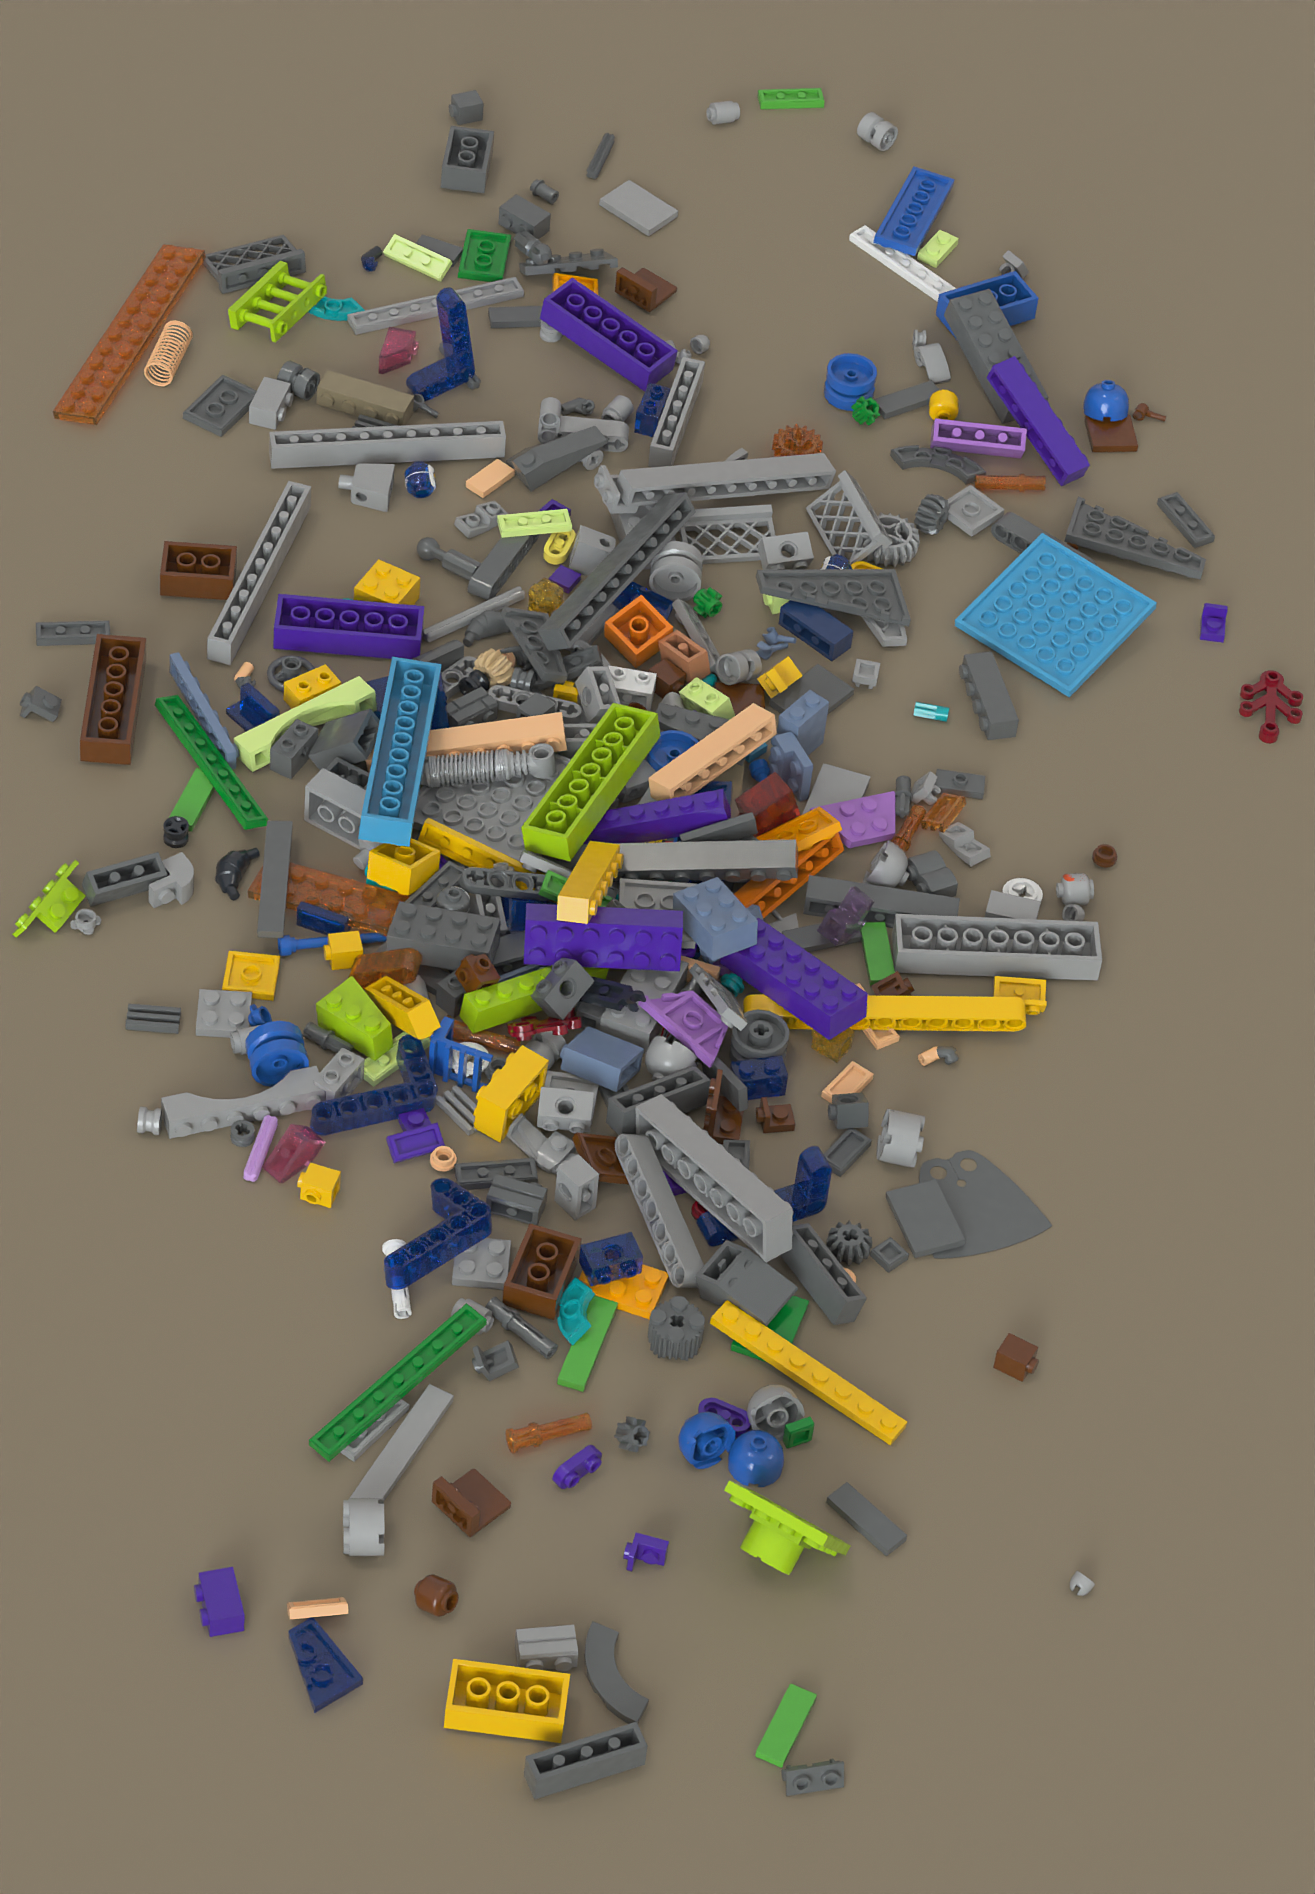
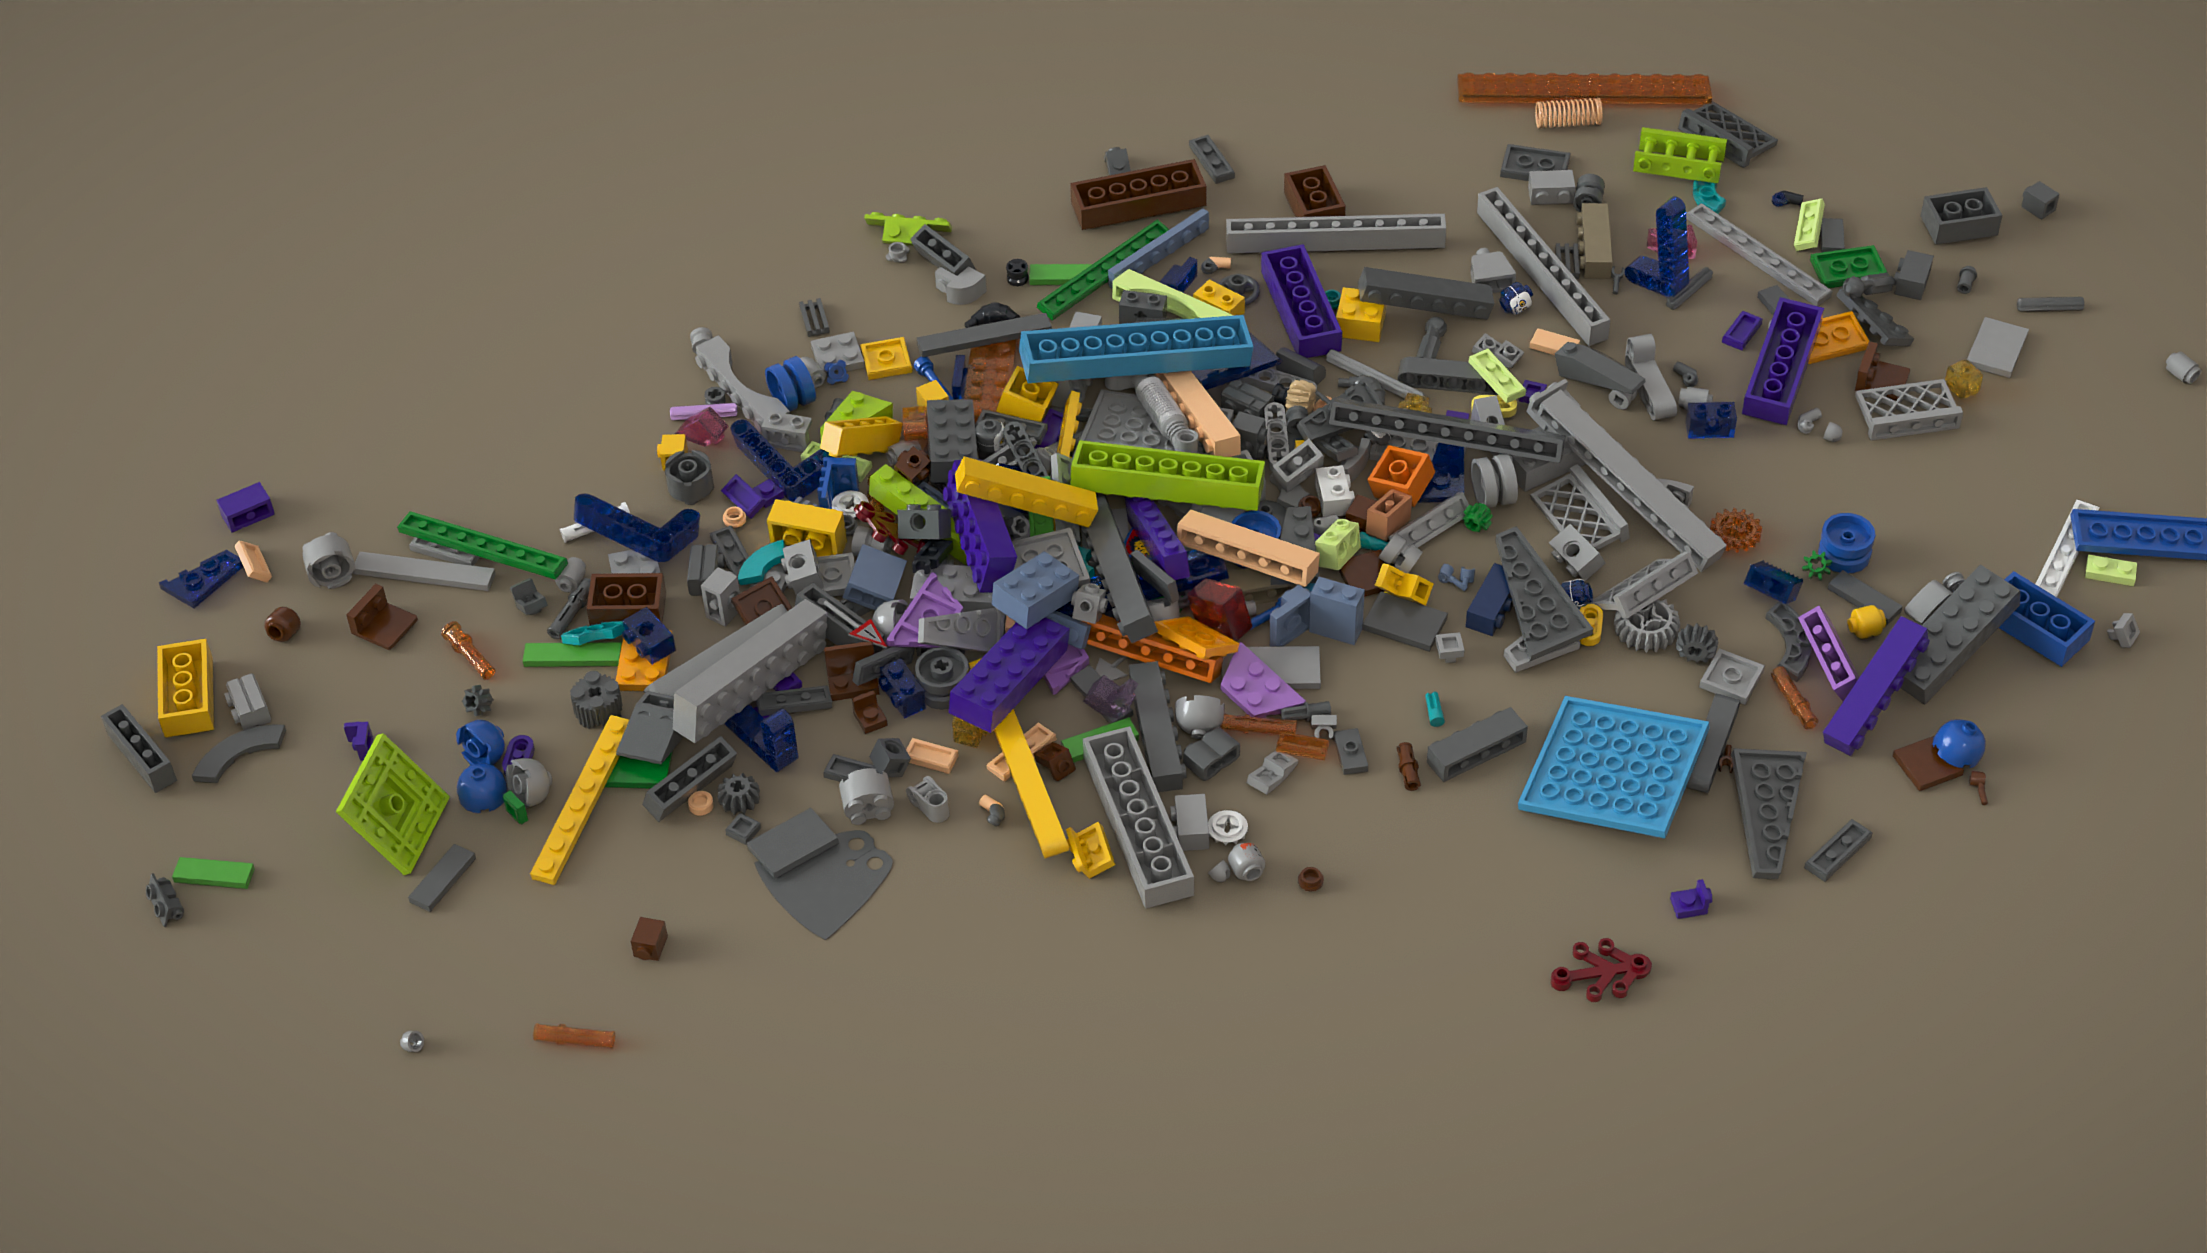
camera: 80 degrees right, 0 degrees up
(372, 1177) = (689, 476): none -> dark grey brick
(397, 532) = (1425, 293): none -> dark grey brick
(532, 1147) = (760, 562): none -> teal tile
(534, 352) = (1742, 330): none -> dark purple tile
(580, 1464) = (435, 676): dark purple plate -> none
(676, 413) = (1713, 434): light grey brick -> none
(679, 239) = (1963, 379): none -> clear yellow brick
(694, 1075) = (865, 632): none -> light grey piece
(710, 288) = (1912, 421): none -> light grey fence
(740, 886) = (1089, 603): none -> light grey brick
(875, 443) = (1773, 582): none -> clear blue brick
(912, 1094) = (929, 799): none -> light grey piece
(994, 750) = (1408, 766): none -> reddish brown pin
(1113, 1453) = (564, 1034): none -> clear orange pin

